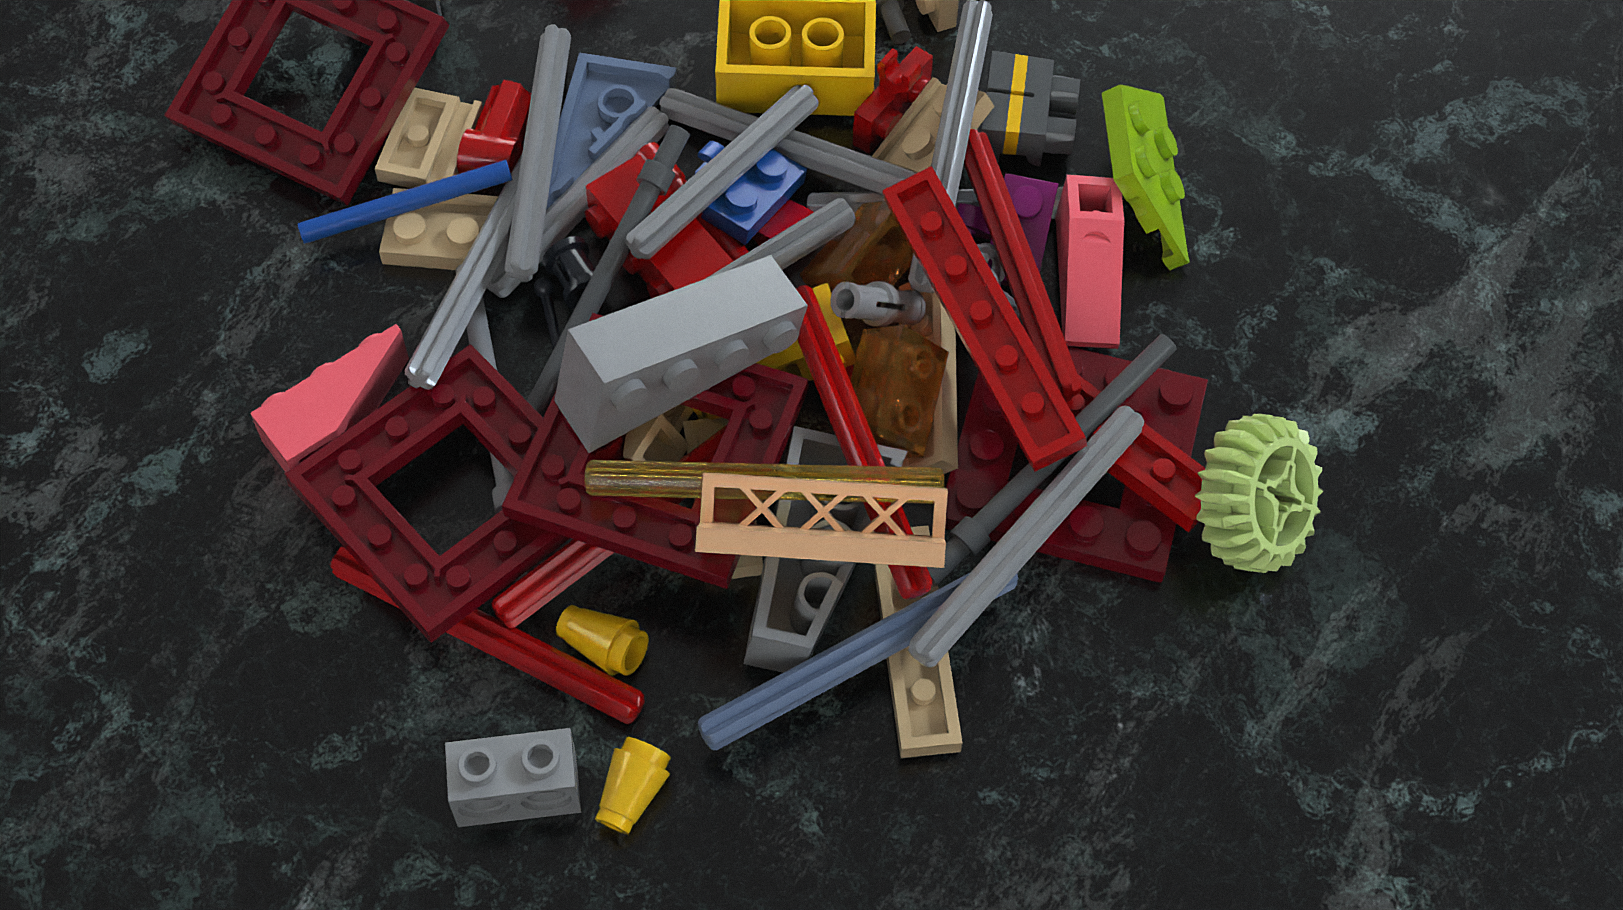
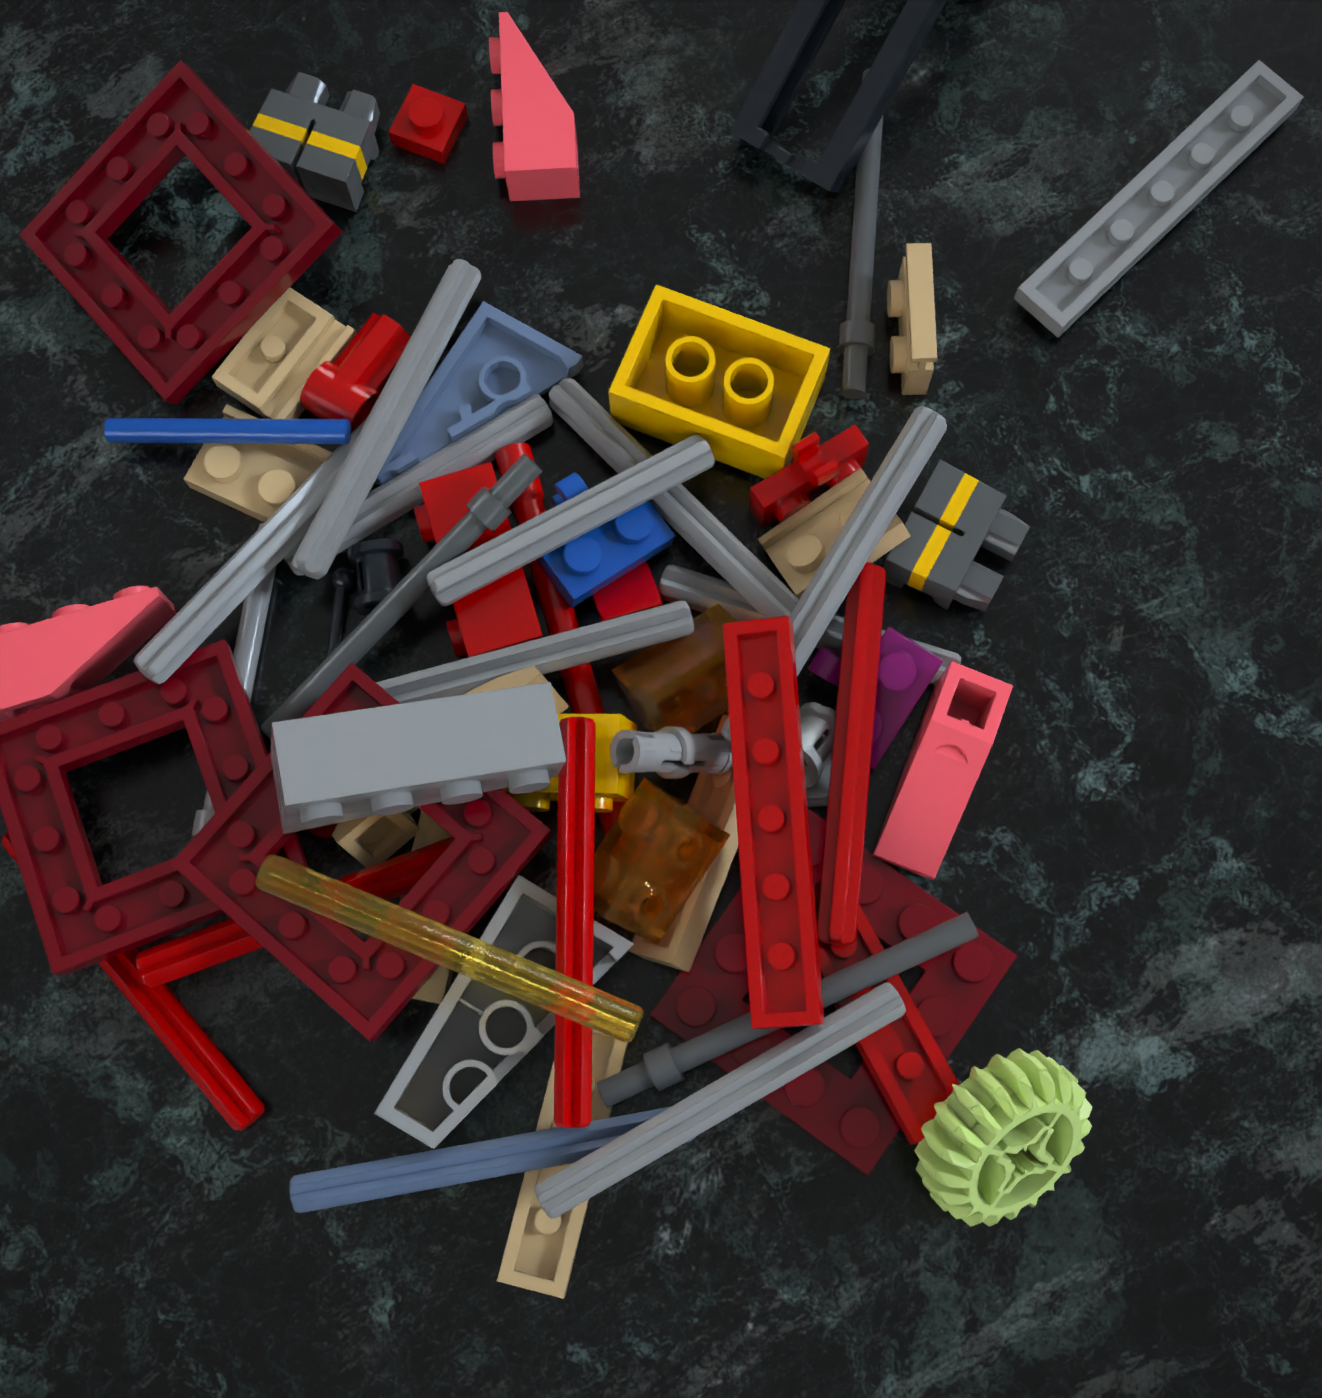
camera: 25 degrees right, 15 degrees up
(512, 777) = (88, 1160): light grey brick -> none
(605, 639) = (244, 1029): yellow cone -> none
(631, 783) = (211, 1205): yellow cone -> none
(820, 543) = (476, 1051): light nougat fence -> none
(1144, 165) = (1055, 665): lime wing -> none

